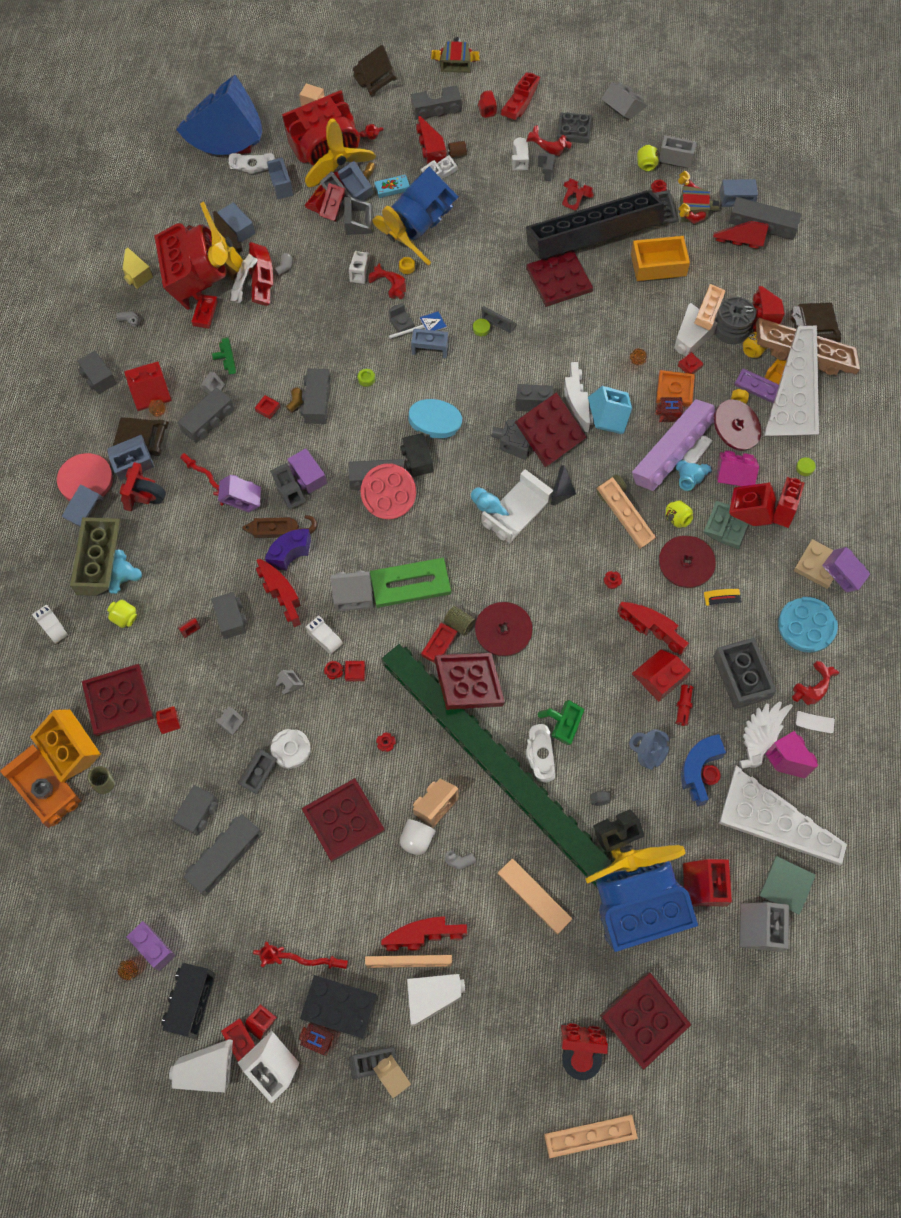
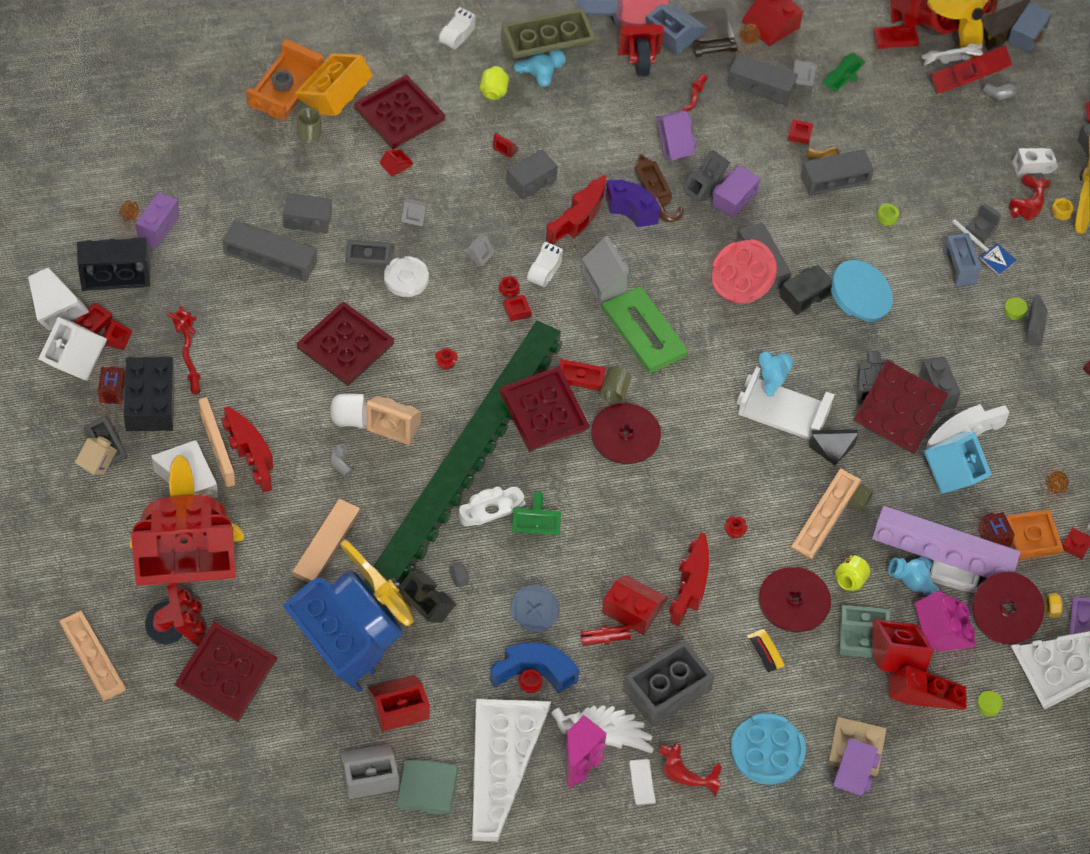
camera: 65 degrees right, 10 degrees down
(520, 1020) = (184, 535): none -> red brick

